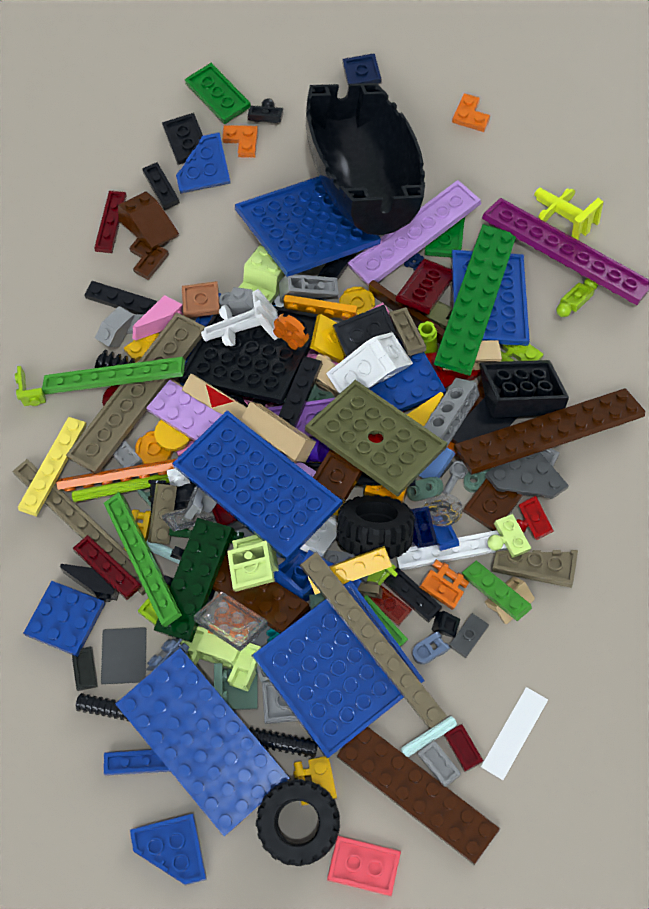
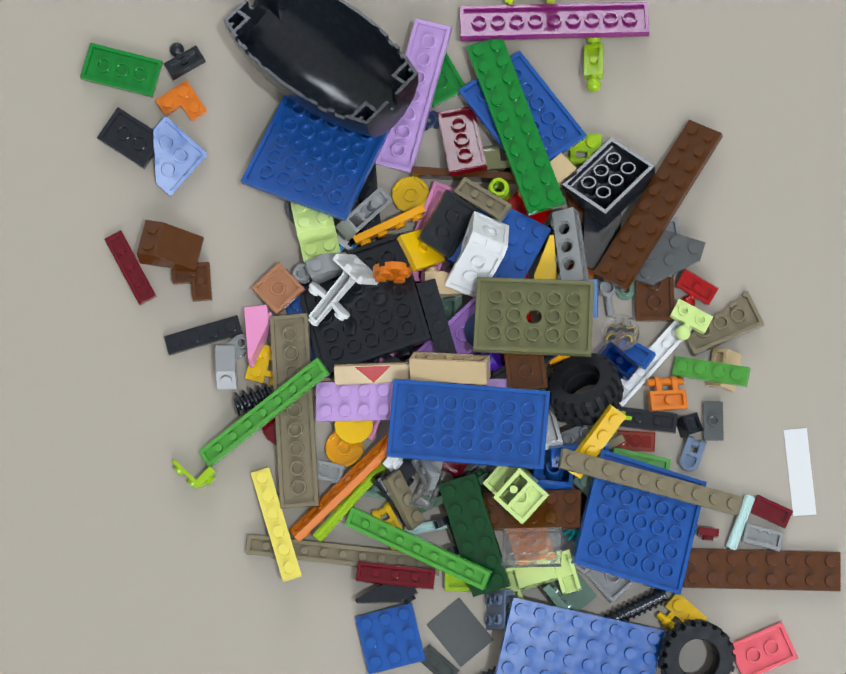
camera: 35 degrees left, 15 degrees up
(160, 185) = (147, 201): black plate -> none
(392, 725) = (708, 534): none -> dark red plate
(423, 489) = (597, 328): sand green plate -> none

